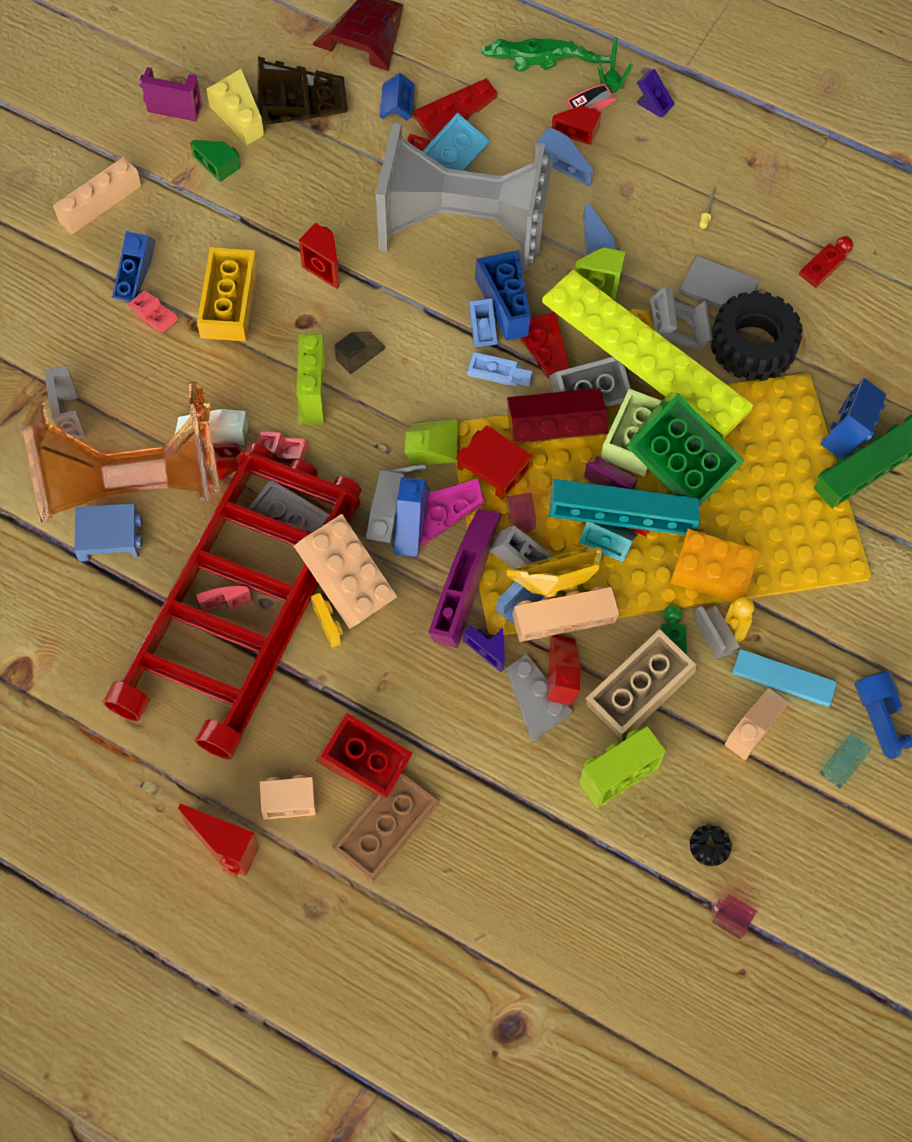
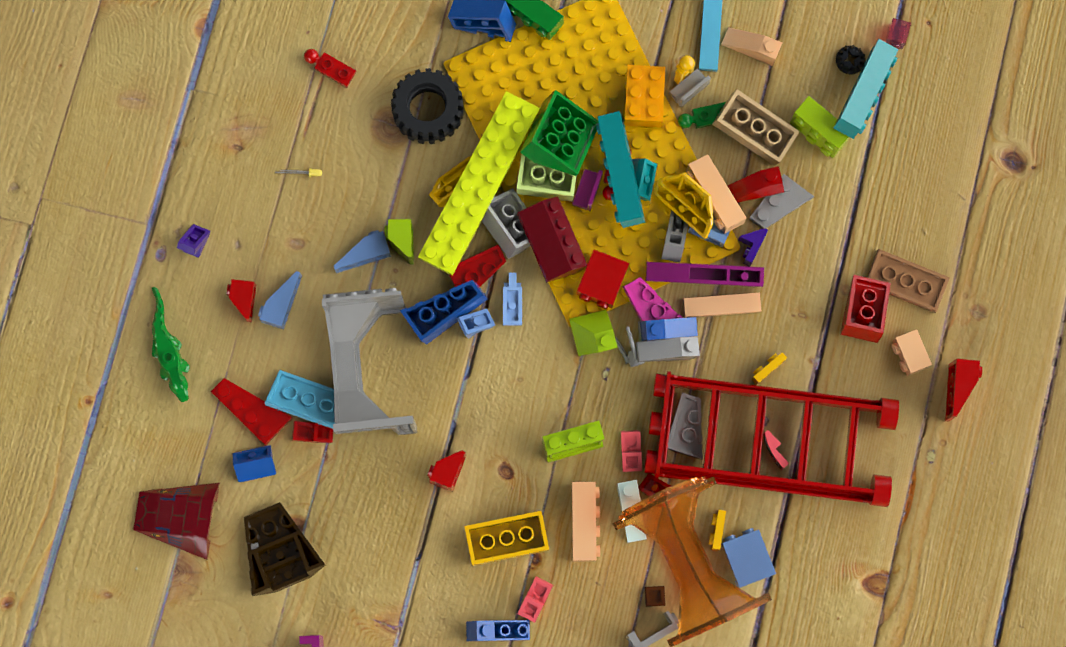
camera: 105 degrees left, 15 degrees up
(106, 428) = (655, 596): none -> reddish brown tile
(159, 512) = (716, 537): none -> yellow plate
(216, 157) = (365, 599): green slope -> none
(218, 376) = (584, 522): none -> light nougat brick
(236, 107) = (305, 599): light yellow wedge -> none
(345, 571) = (735, 360): light nougat brick -> none
(357, 350) = (525, 416): clear smoke slope -> none
(423, 593) = (722, 305): none -> light nougat tile
(521, 512) = (641, 247): clear pink brick -> none
(594, 98) = (211, 294): slope -> none
(612, 78) = (183, 281): green plant -> none
(660, 835) = (866, 88): none -> brick
(664, 318) = (433, 178): light grey panel -> none
(715, 283) = (379, 147): light grey tile -> none

